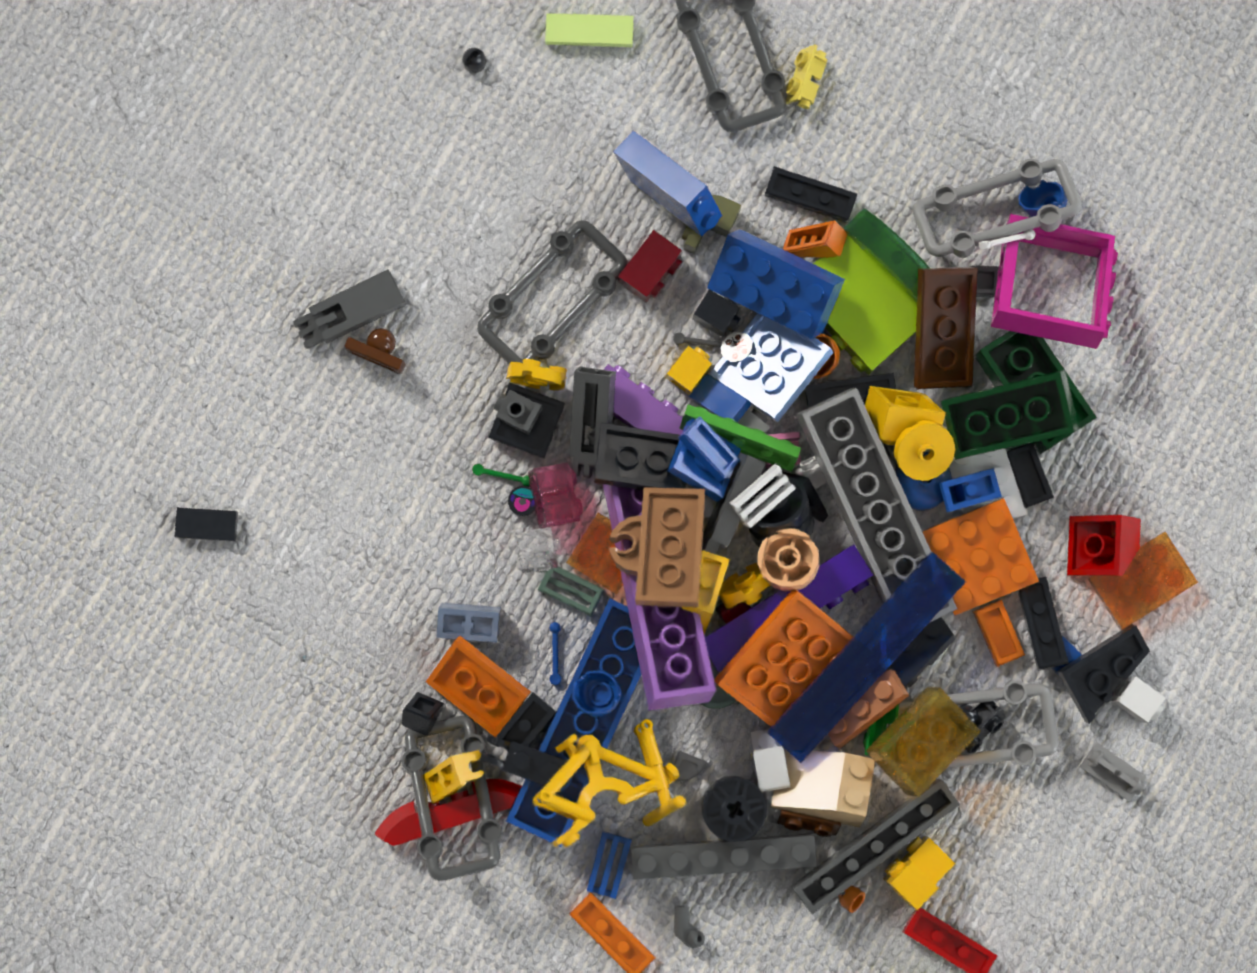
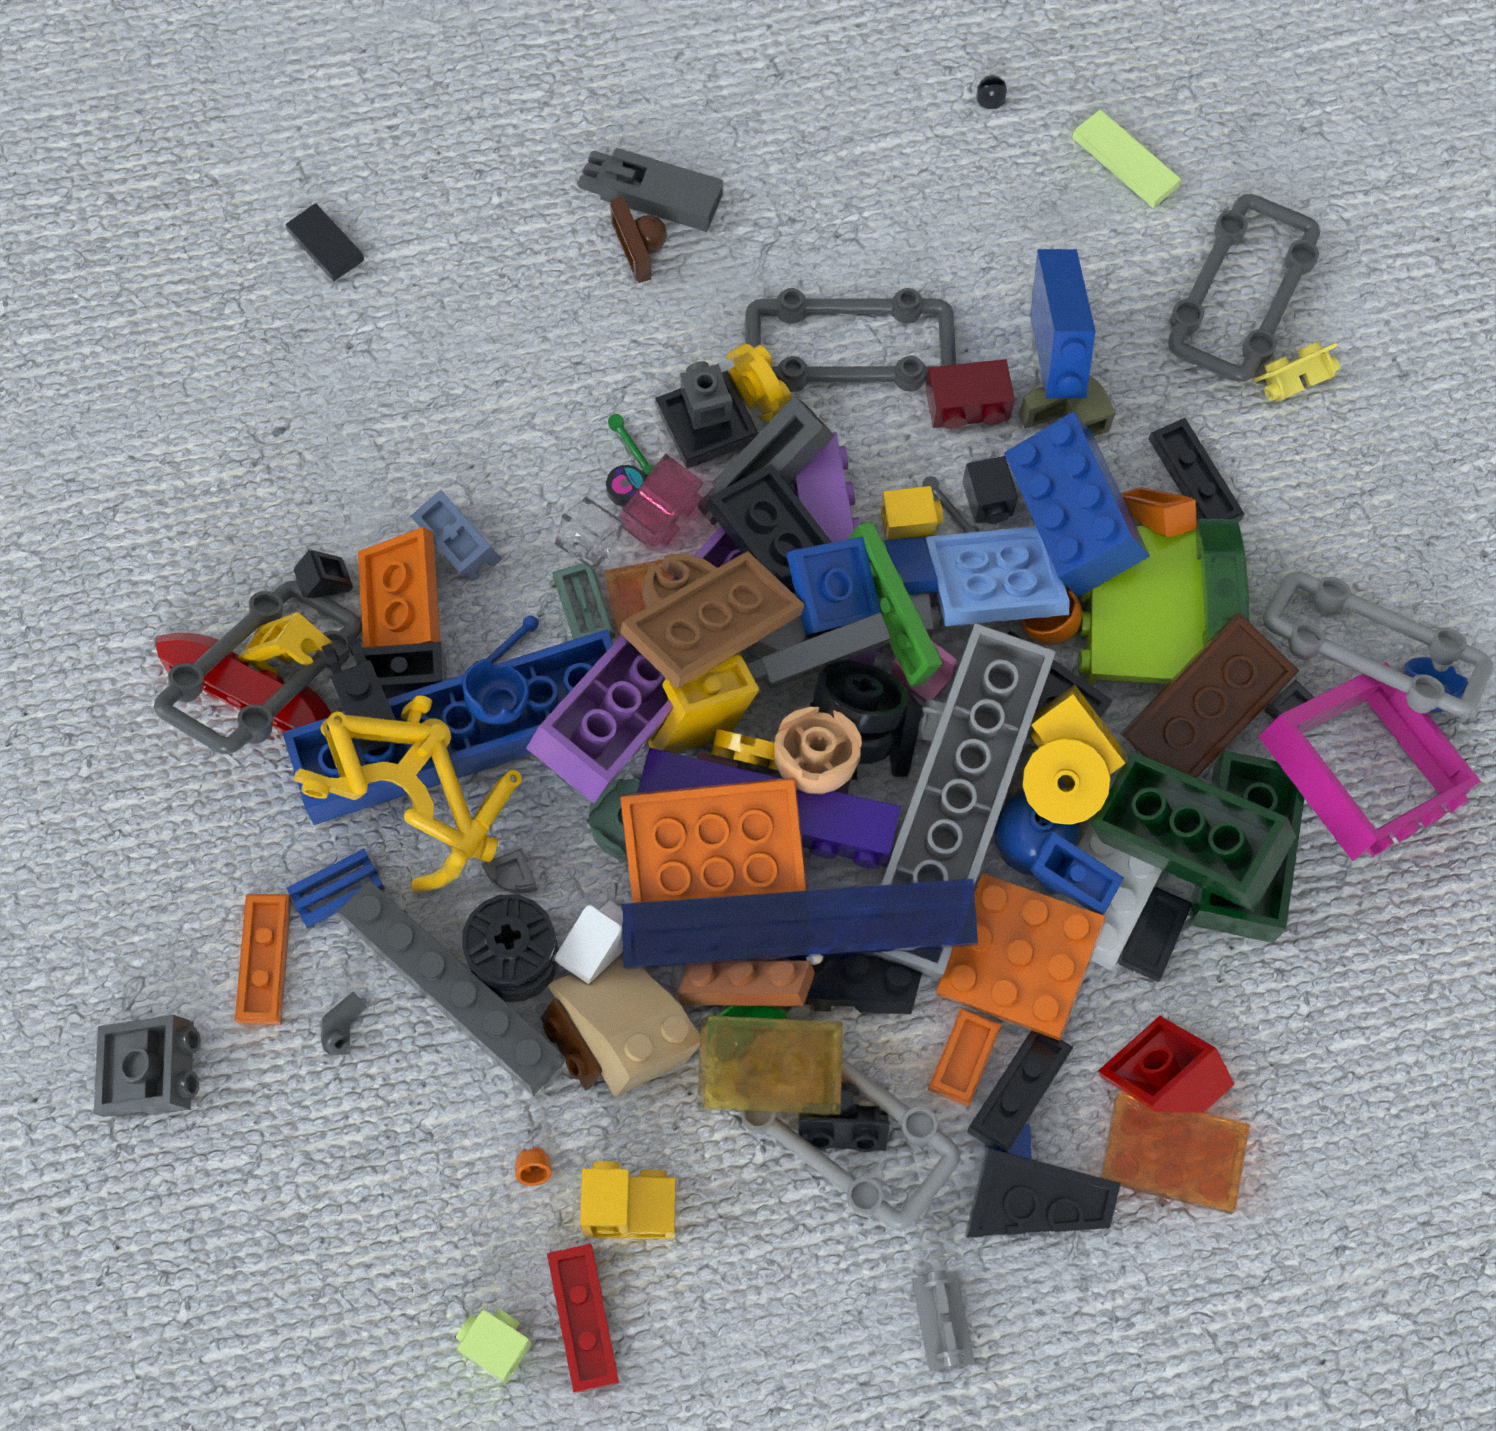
camera: 45 degrees right, 15 degrees down
(709, 449) = (849, 575): blue tile -> none
(736, 346) = (978, 535): white sticker -> none
(769, 504) = (890, 668): white tile -> none
(874, 846) = (611, 1130): dark grey brick -> none
(1028, 235) = (1386, 691): white hinge -> none
(1139, 700) = (1047, 1271): white brick -> none

